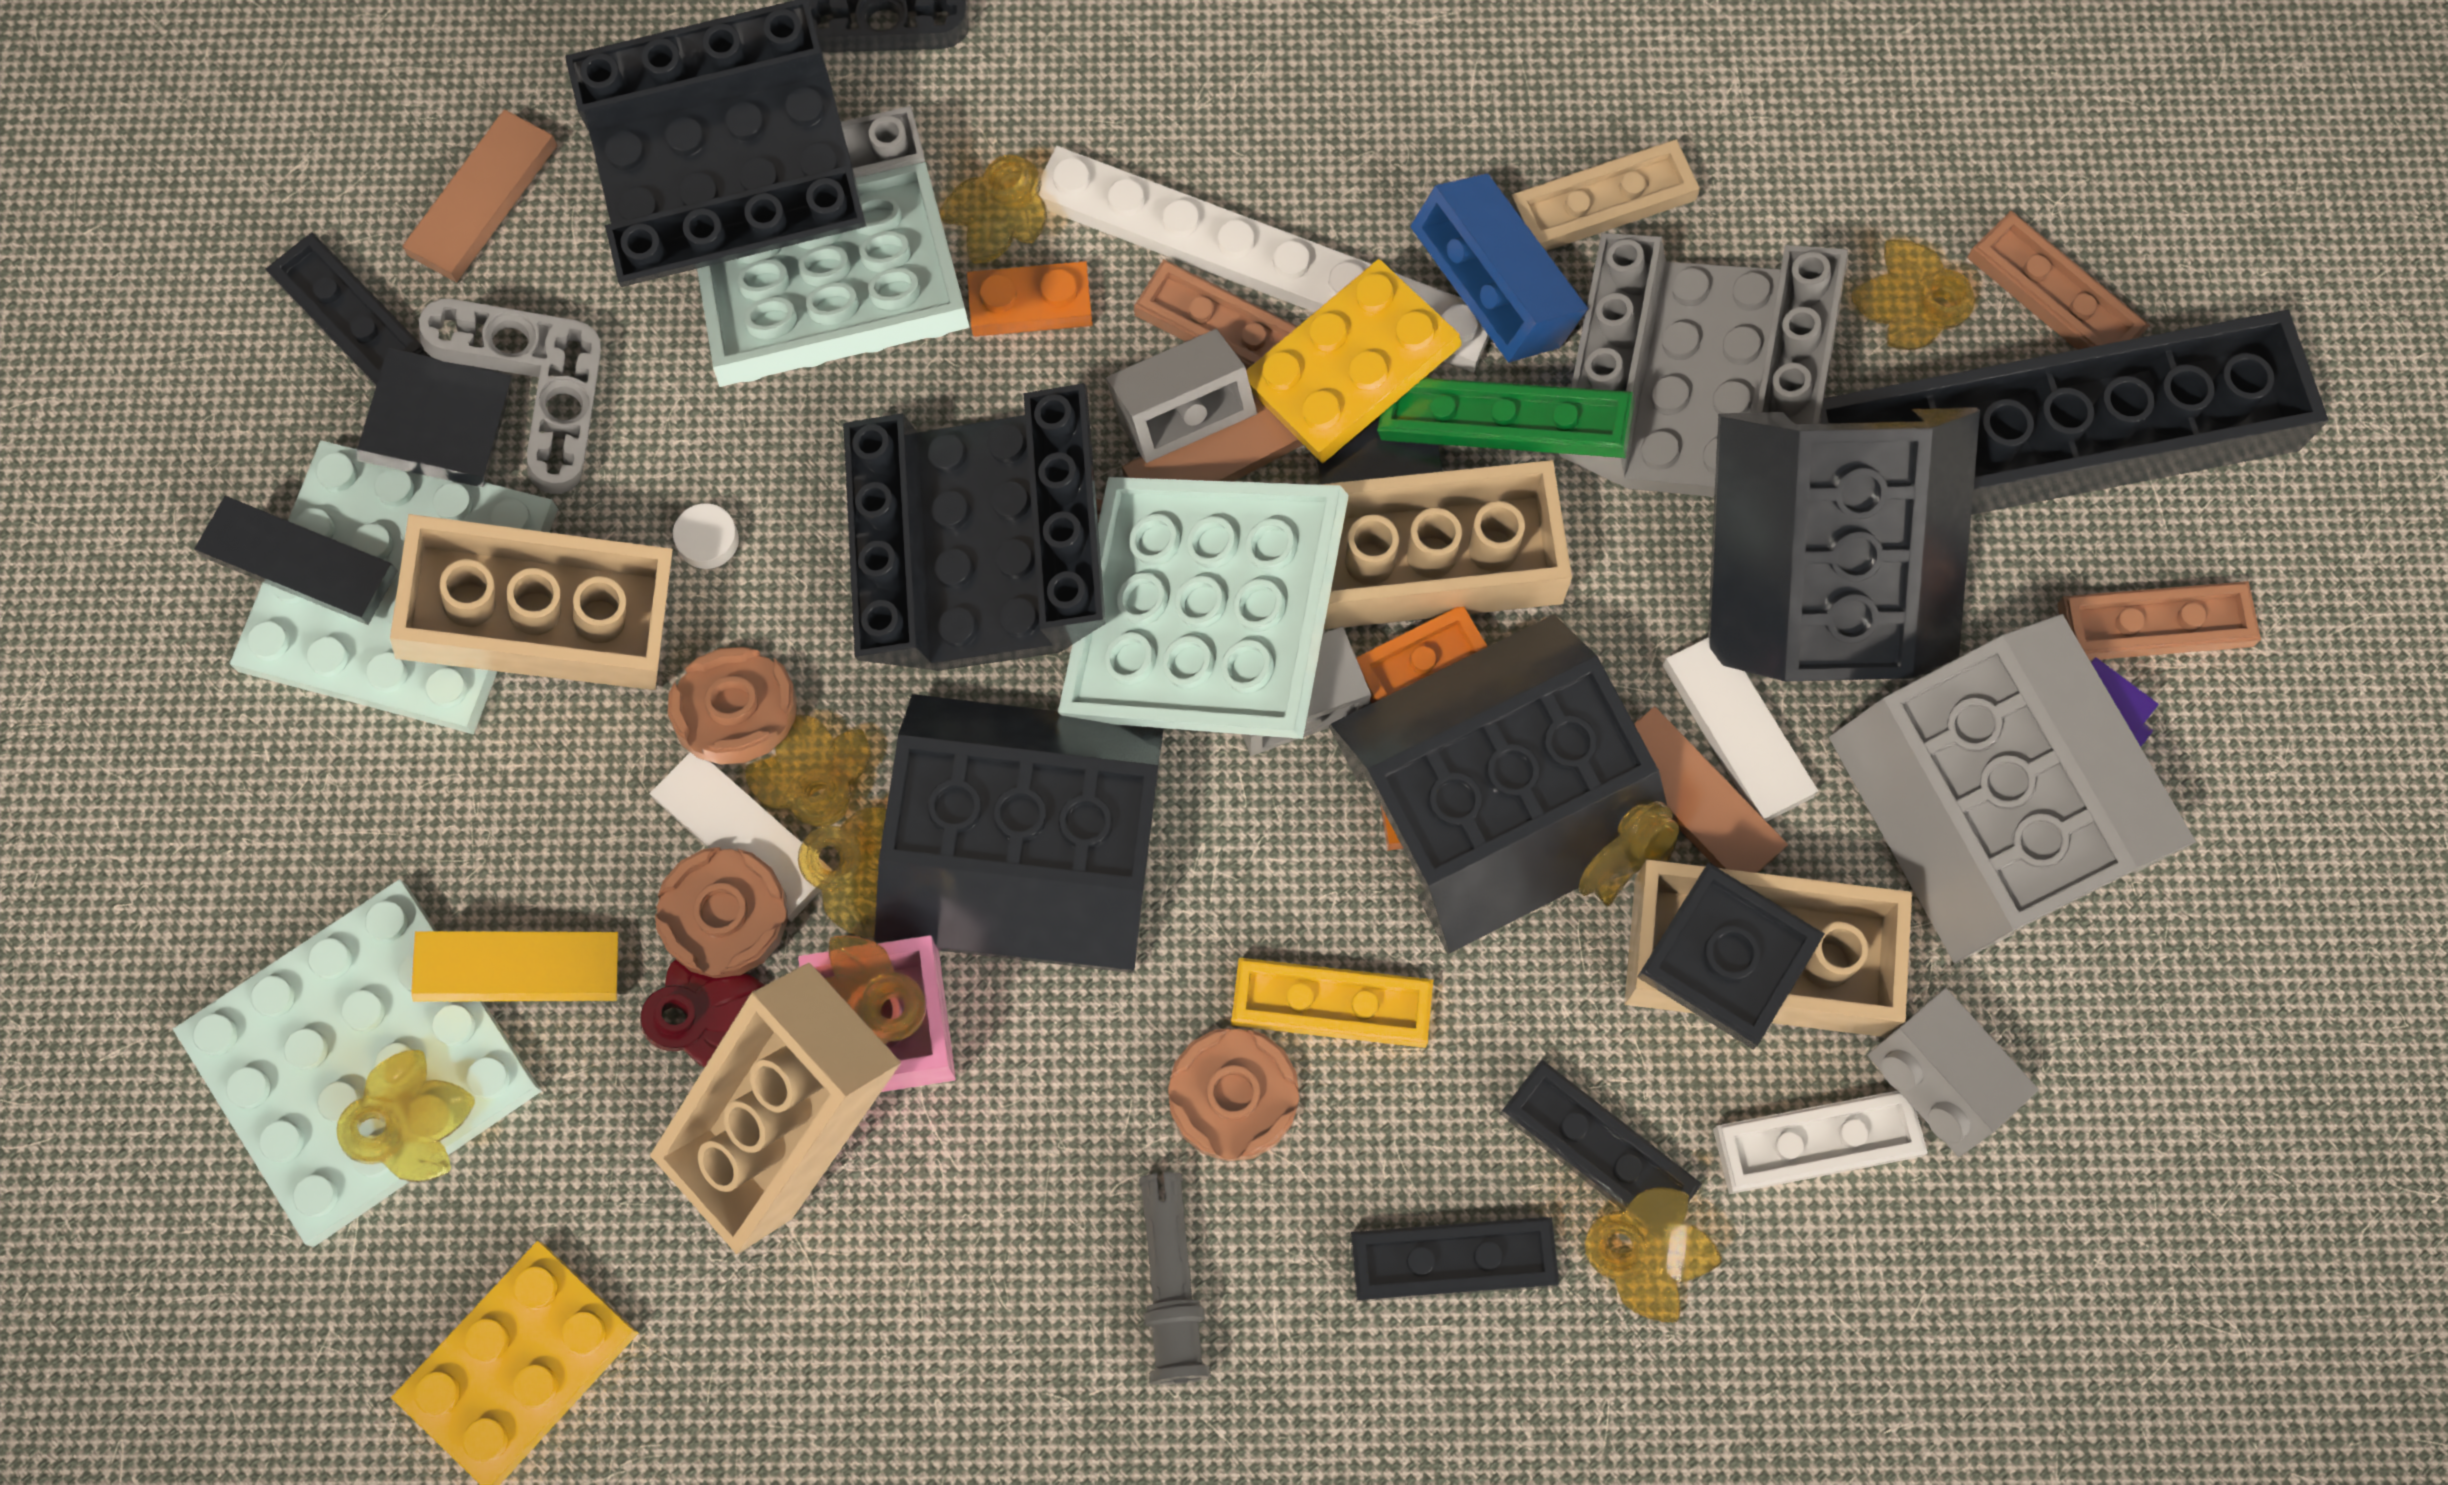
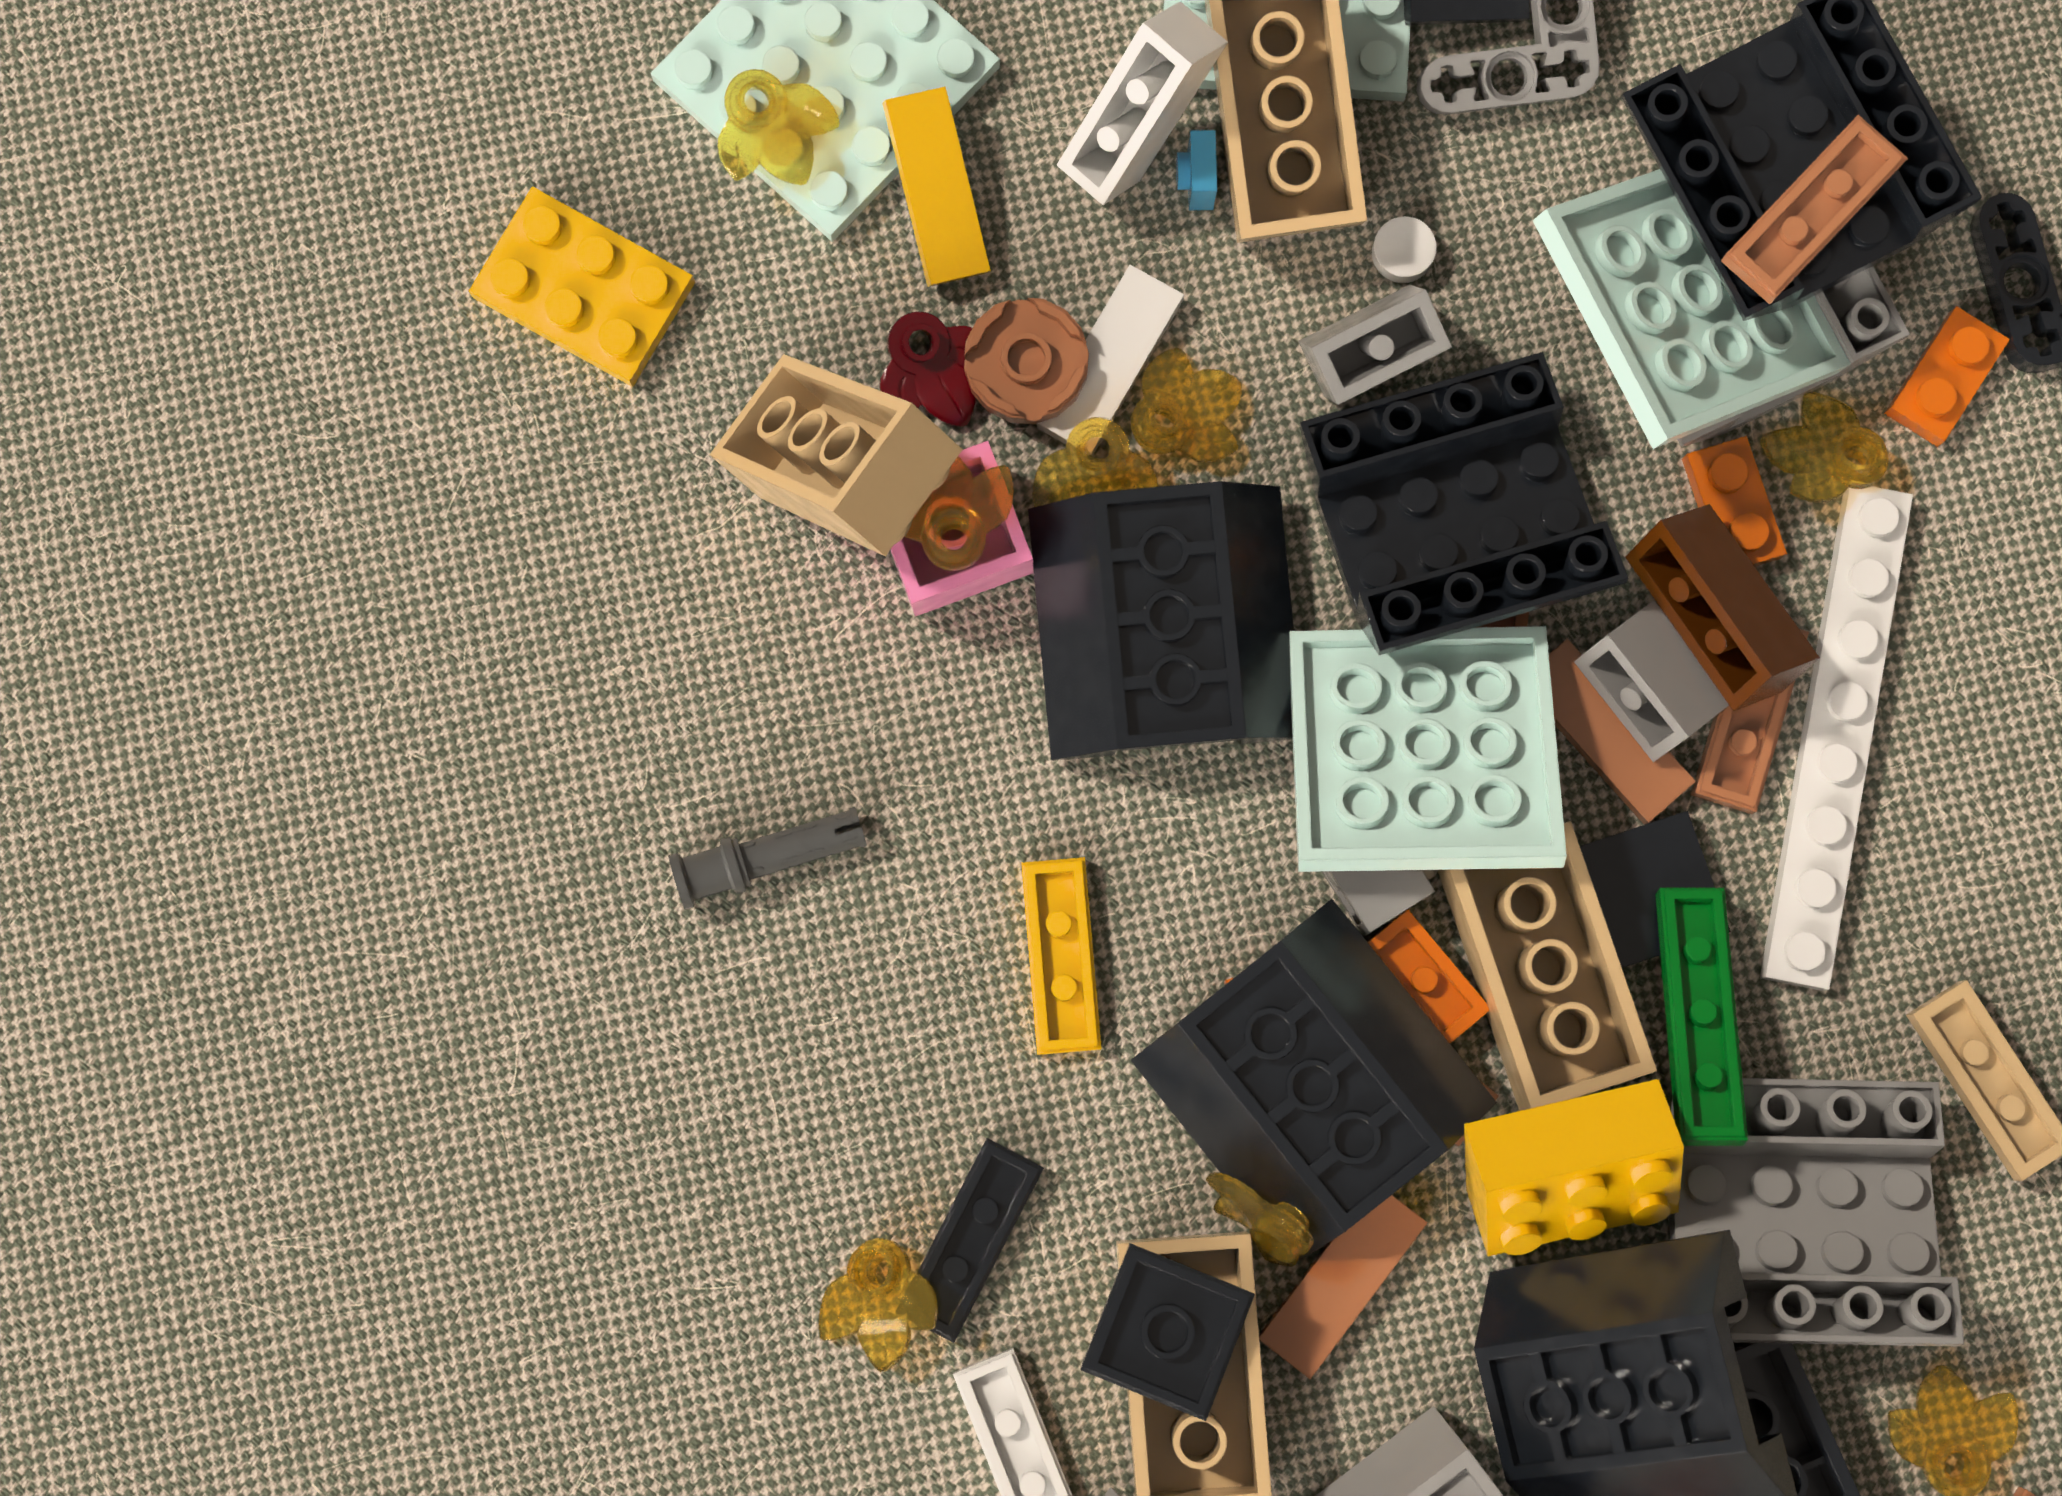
camera: 80 degrees right, 10 degrees up
(492, 734) = (1141, 102): none -> white brick
(573, 705) = (1198, 170): none -> dark azure plate
(732, 705) = (1233, 319): nougat tile -> none
(780, 136) = (1814, 209): none -> nougat tile
(794, 574) = (1375, 344): none -> light grey brick
(953, 97) = (1947, 376): none -> orange plate
(1126, 318) = (1721, 607): none -> reddish brown brick
(1233, 1094) = (953, 879): nougat tile -> none
(1351, 360) = (1730, 846): yellow plate -> none
(1454, 1259) = (838, 1117): black tile -> none
(1498, 267) = (1875, 979): blue brick -> none
(1630, 555) = (1573, 1168): none -> yellow brick
(1740, 731) = (1420, 1317): white tile -> none

